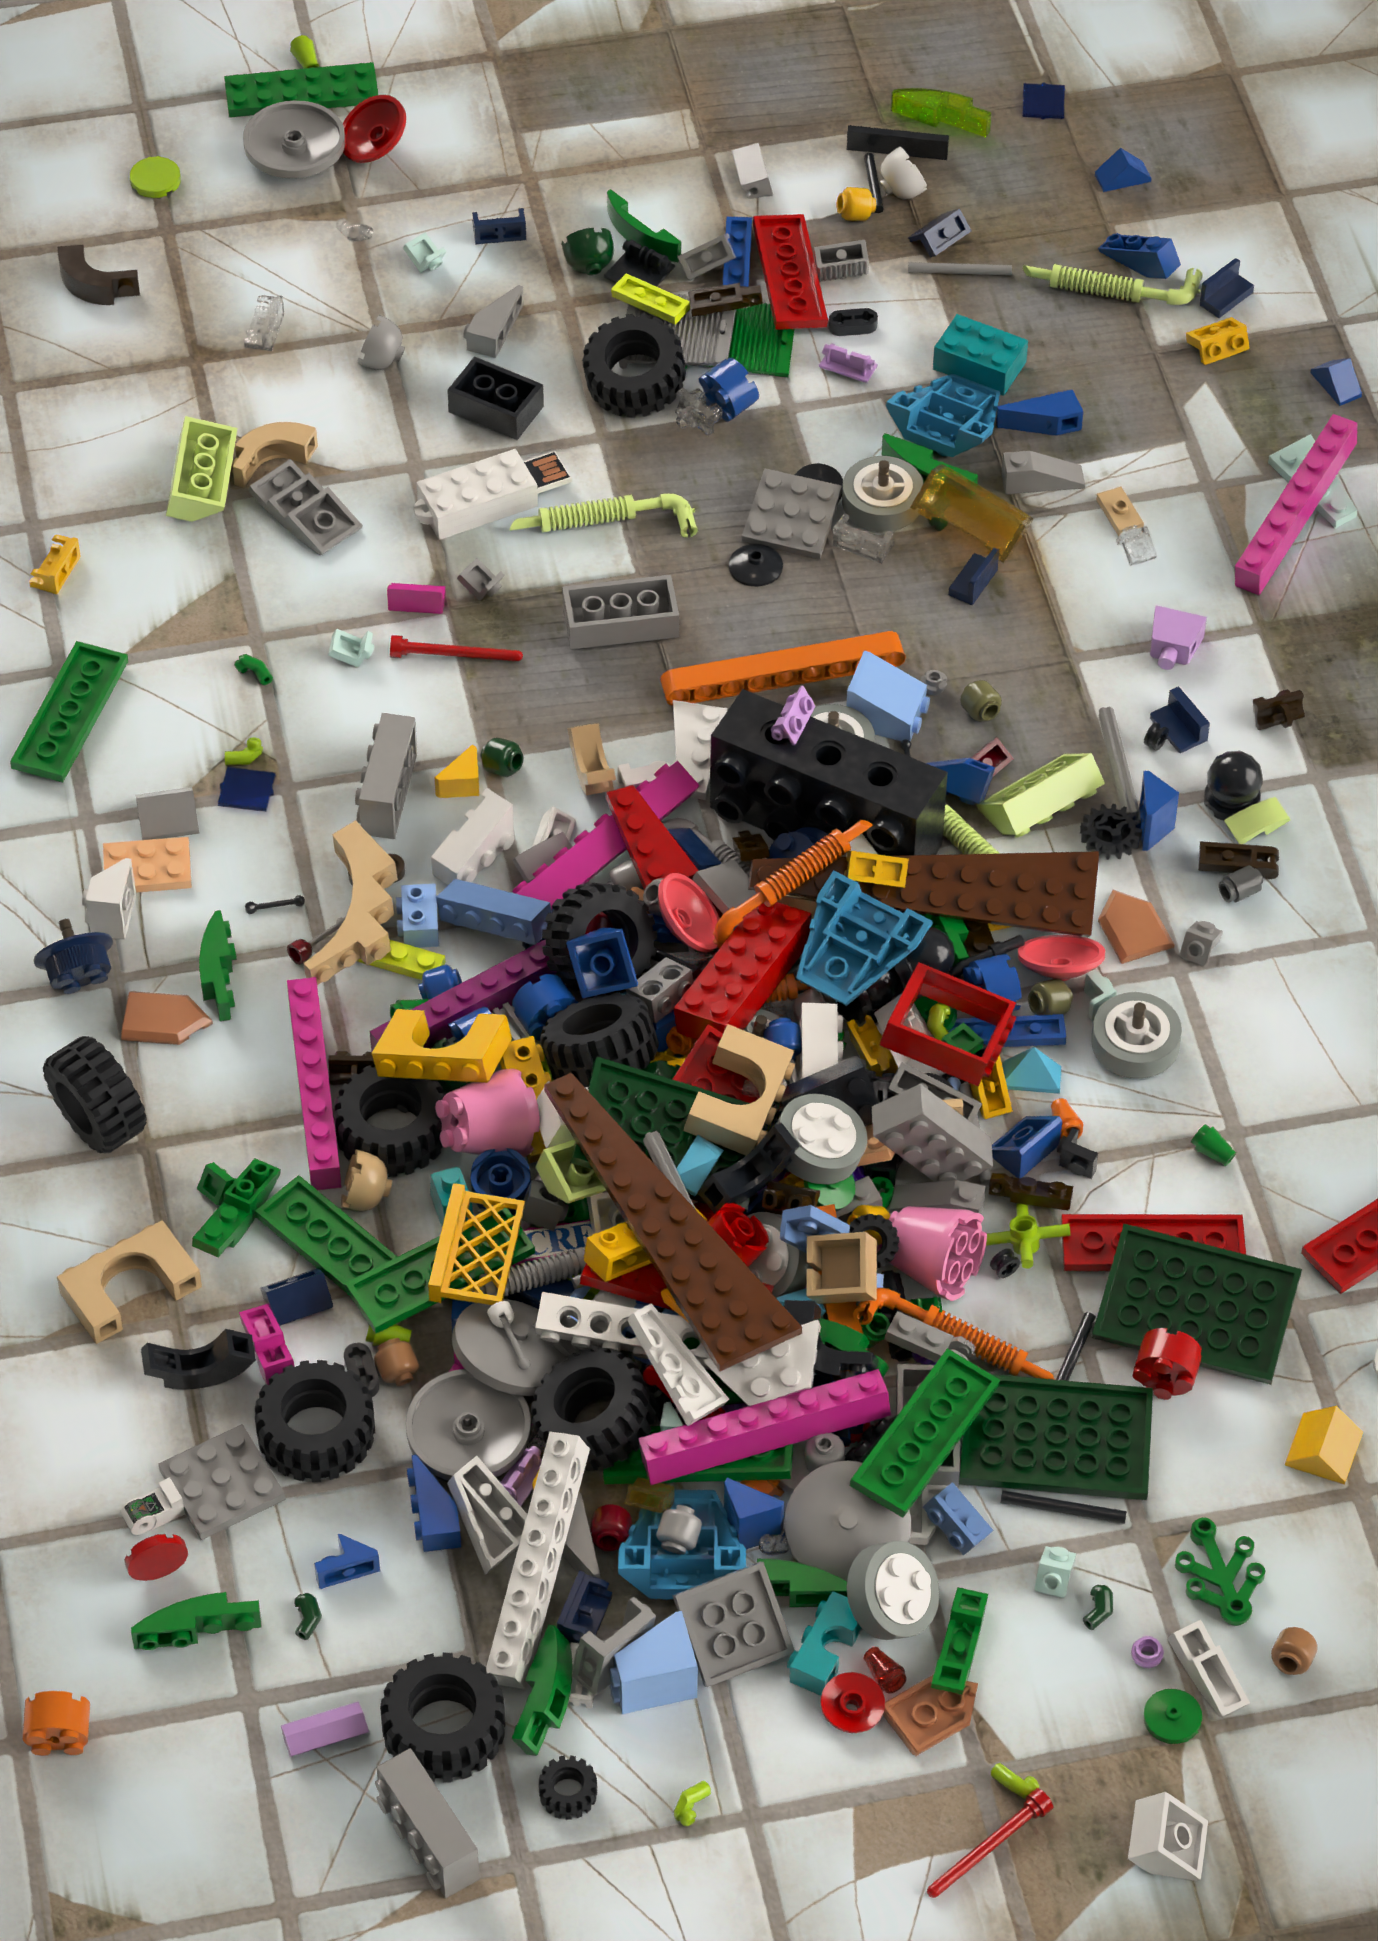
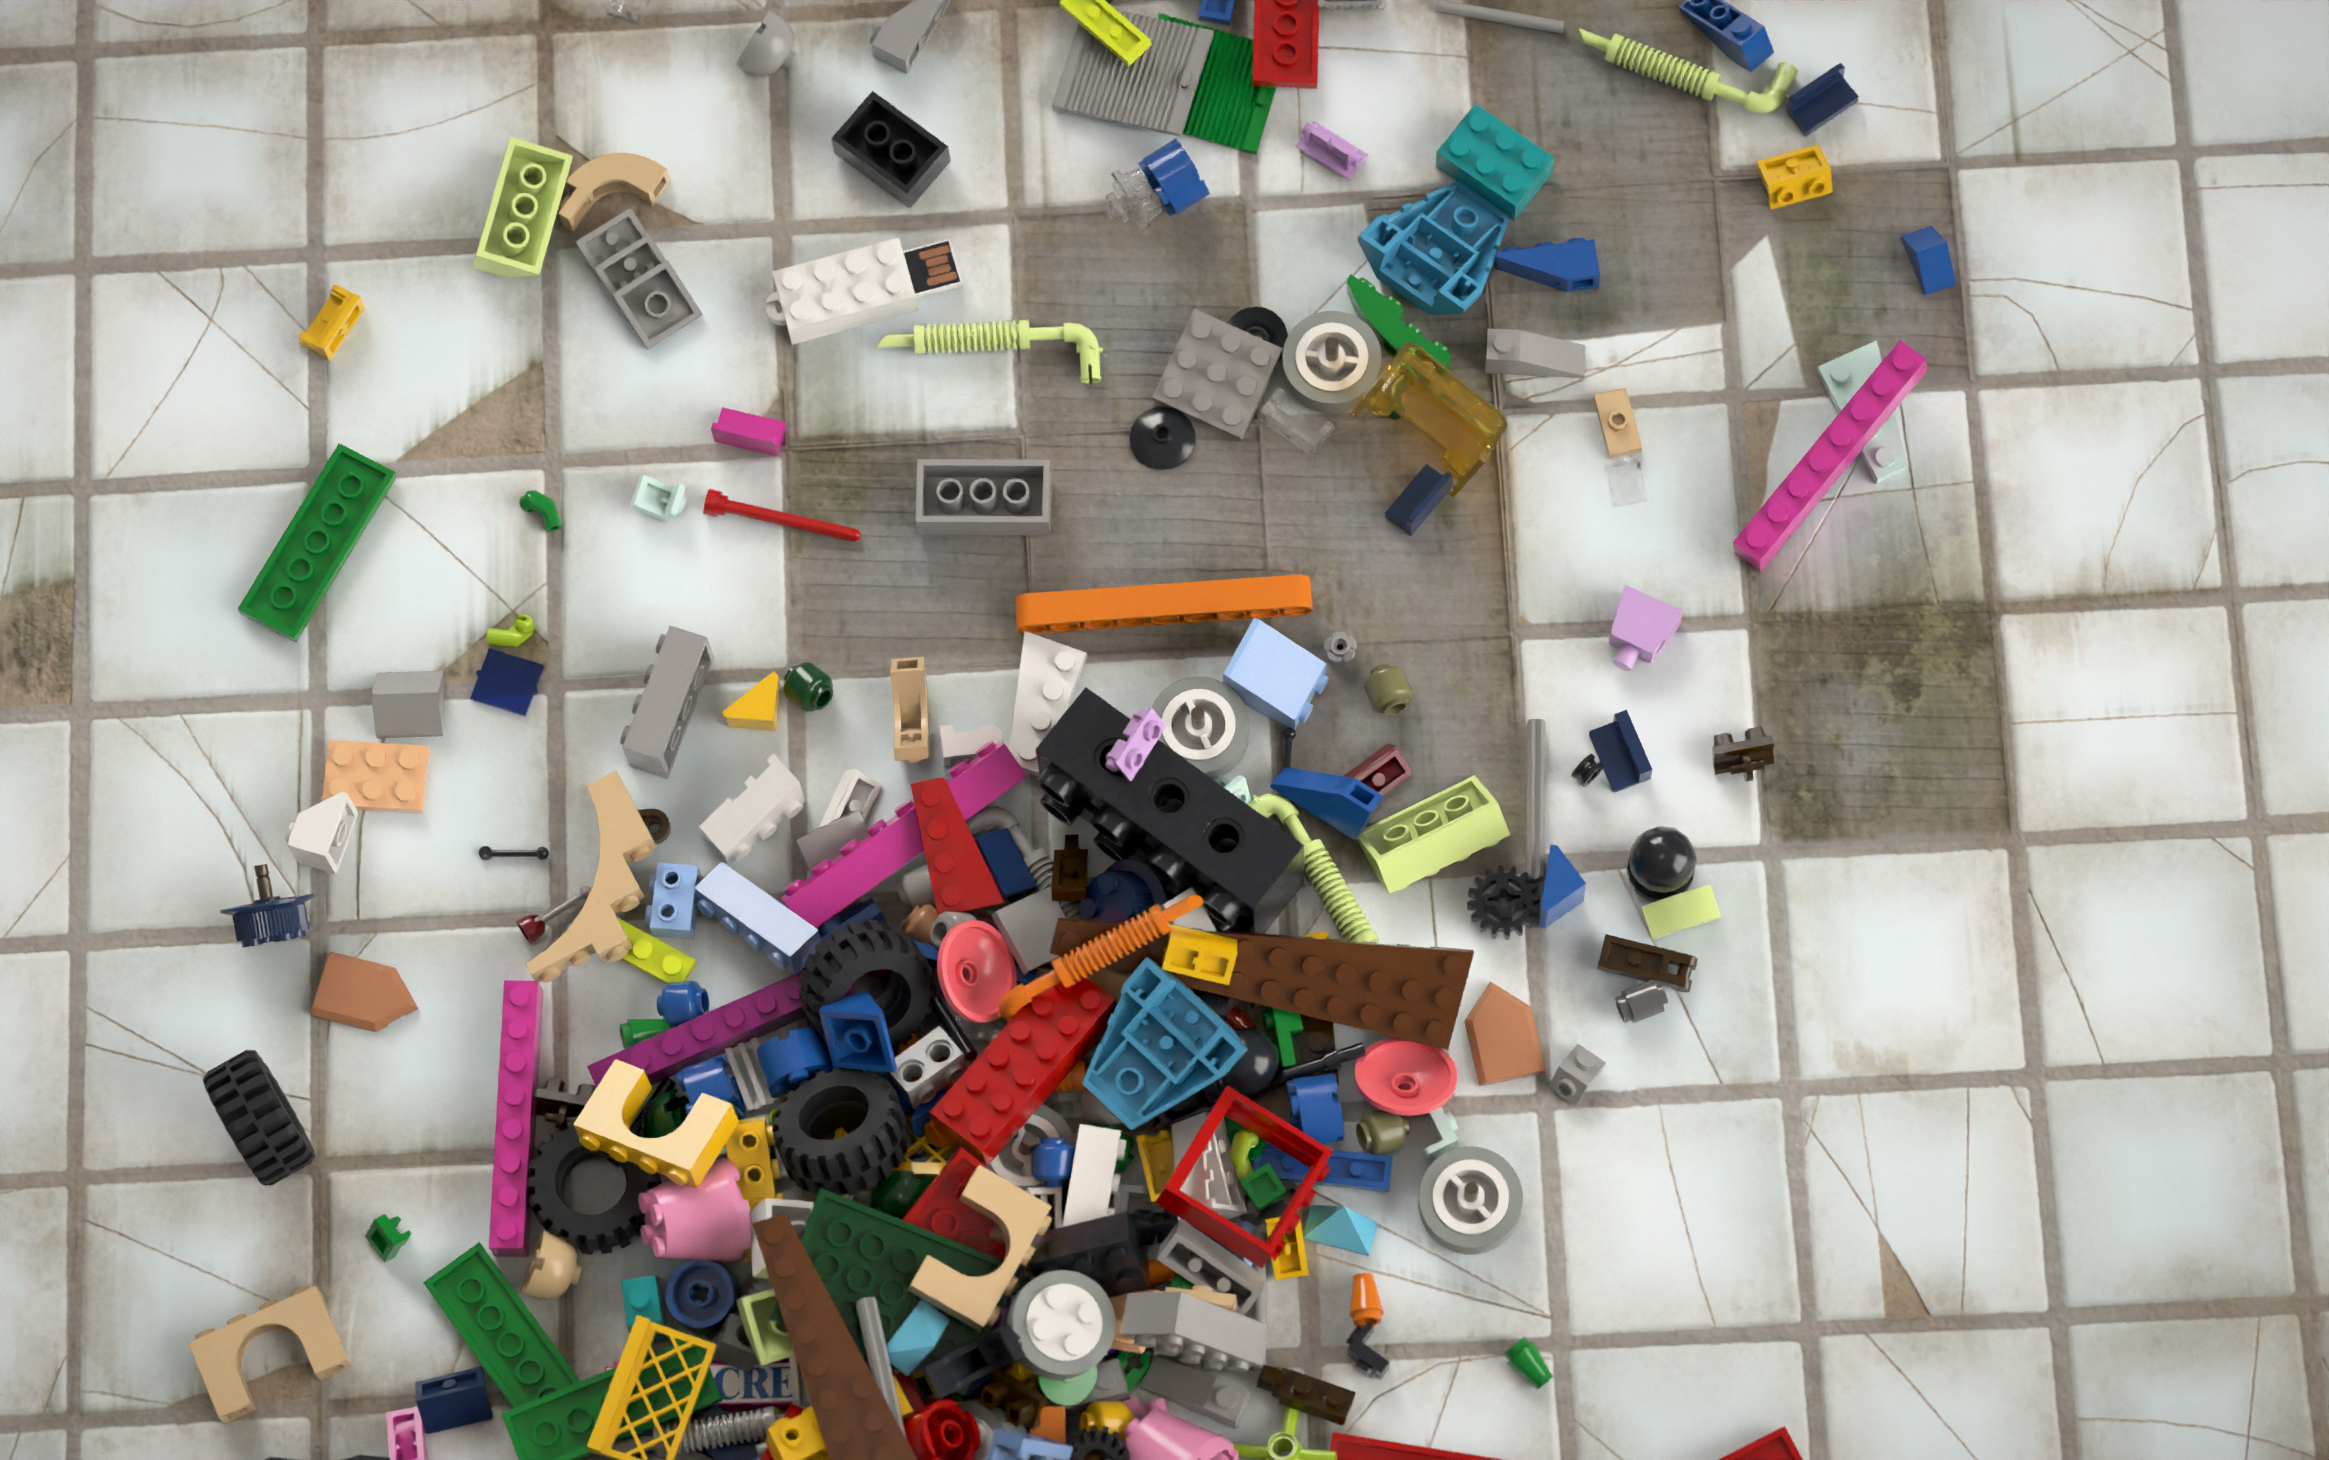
camera: 15 degrees right, 20 degrees up
(216, 964) = (430, 924): green slope -> none
(238, 1209) = (404, 1277): green slope -> none
(480, 580) = (828, 420): light grey bracket -> none
(634, 337) = (1041, 95): black tyre -> none
(724, 298) = (1192, 39): dark brown hinge -> none
(853, 322) = (1350, 83): black beam -> none
(1027, 1143) = (1311, 1324): blue slope -> none

